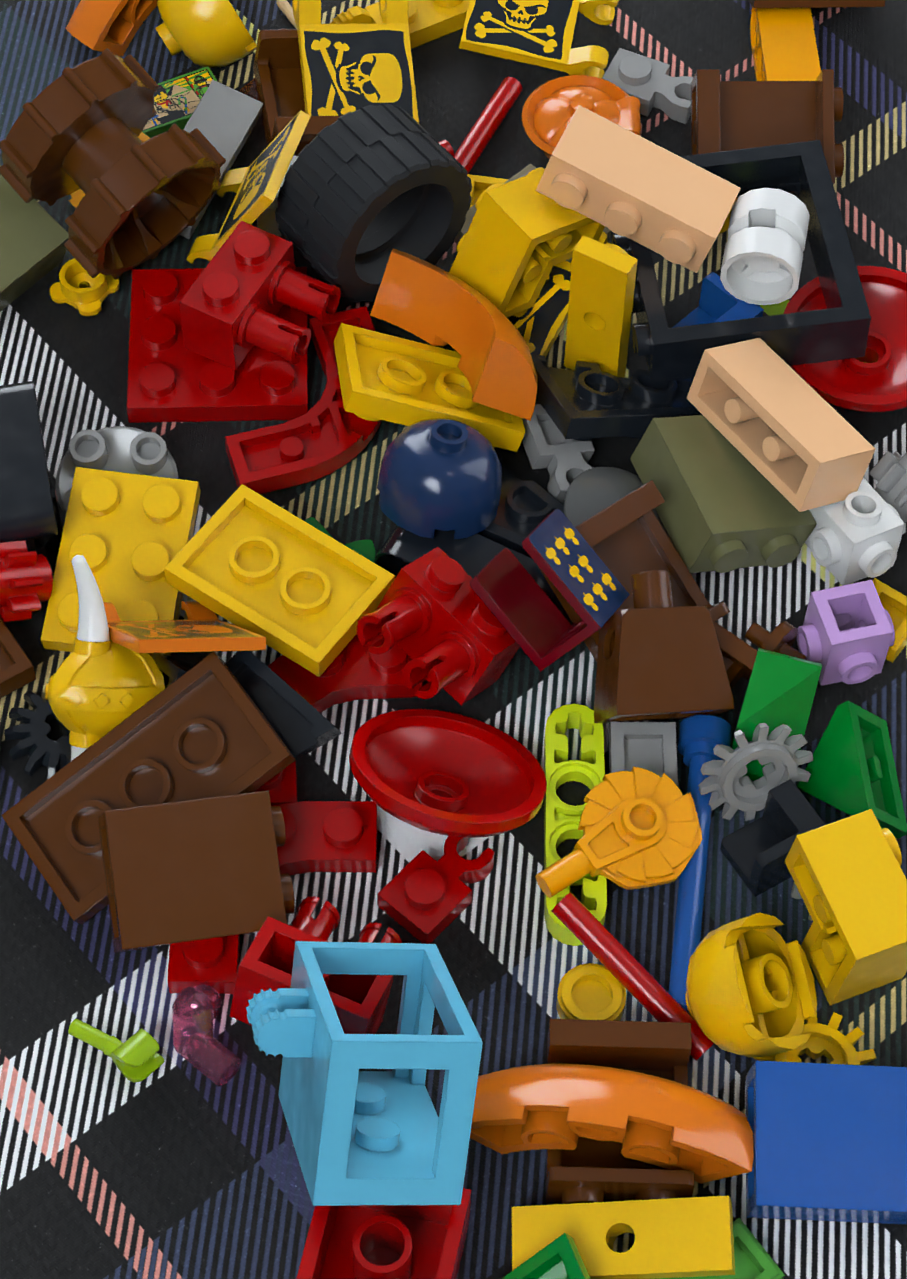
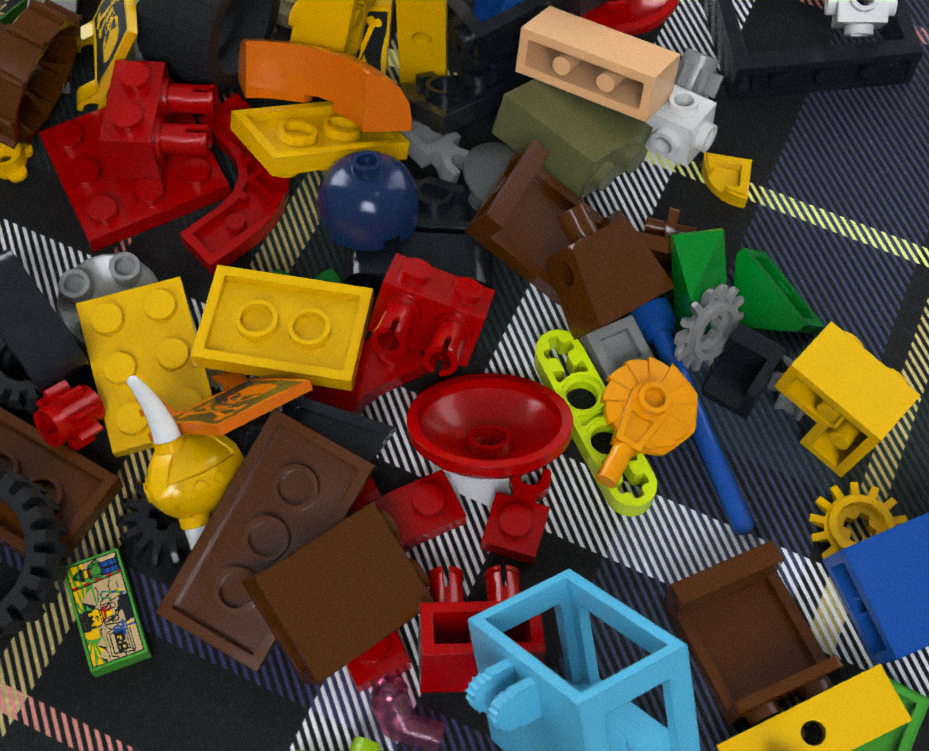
camera: 25 degrees left, 5 degrees up
(527, 609) = (493, 279): dark red piece -> none
(590, 994) = (677, 551): yellow tile -> none
(627, 969) = (695, 516): red bar -> none
(648, 1114) = (767, 629): orange brick -> none
(751, 988) = (794, 494): yellow cylinder -> none
(846, 633) = (715, 196): lavender brick -> none

